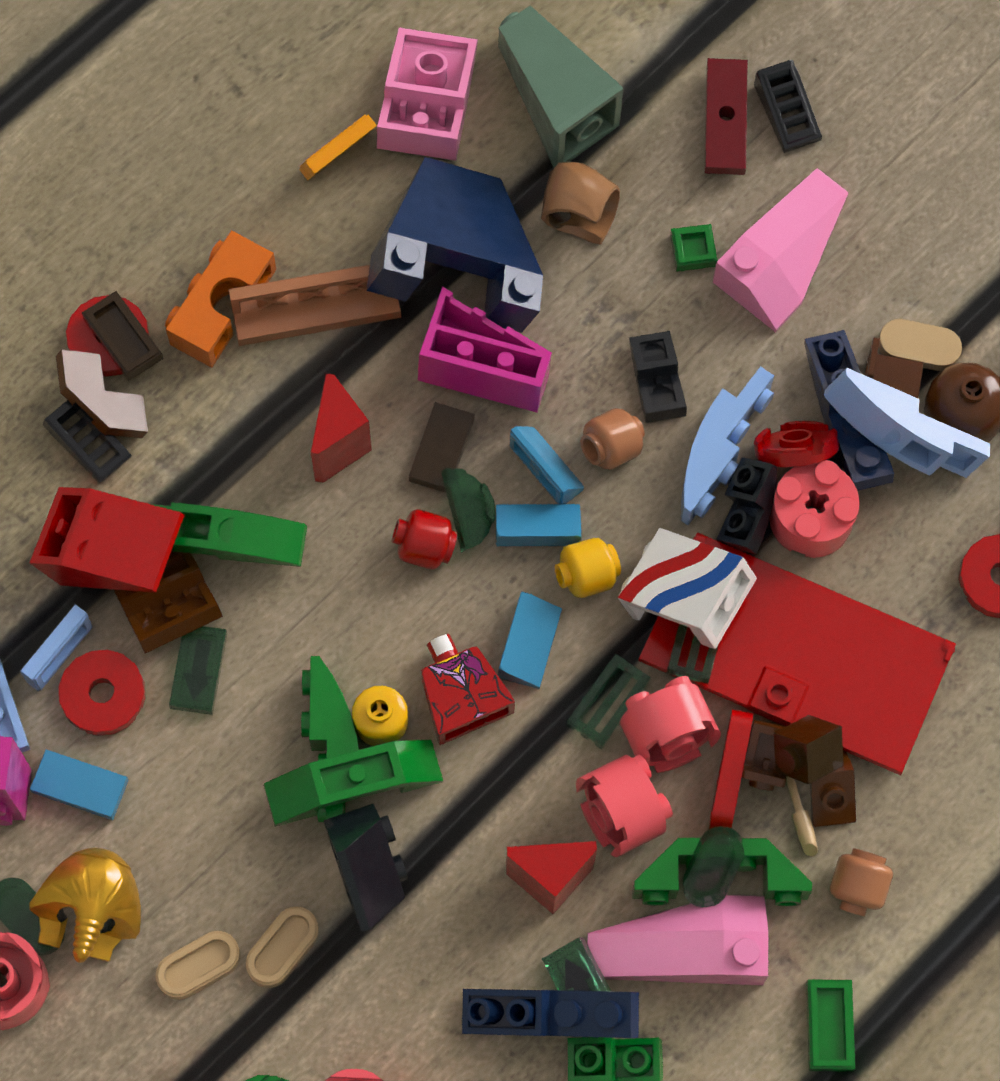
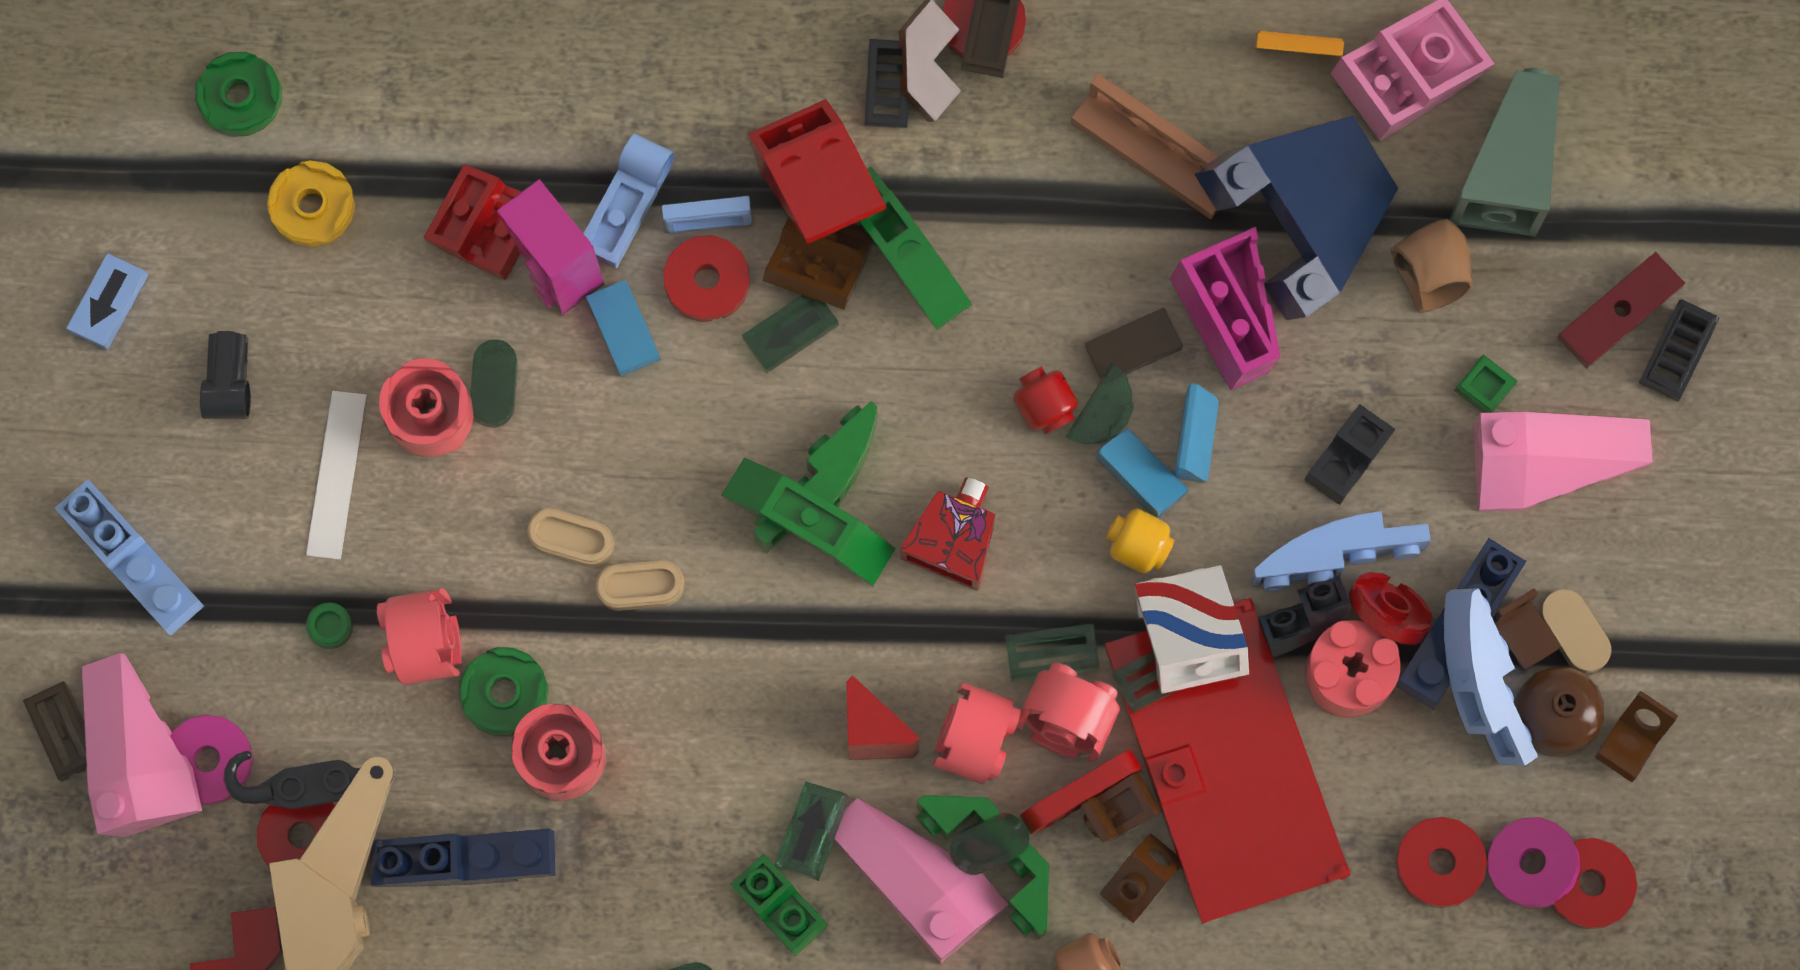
camera: 50 degrees right, 5 degrees up
(98, 889) = (550, 418): pearl gold piece -> none
(196, 324) = (1124, 60): orange arch -> none
(340, 432) = (1061, 258): red slope -> none
(366, 863) = (749, 586): black slope -> none
(383, 702) = (875, 508): yellow head -> none
(529, 641) = (1042, 550): dark azure slope -> none
(551, 1013) = (767, 823): dark blue slope -> none
(612, 439) = (1262, 466): nougat head -> none
(802, 821) = (1096, 880): tan piece -> none
(808, 749) = (1148, 833): dark brown brick -> none

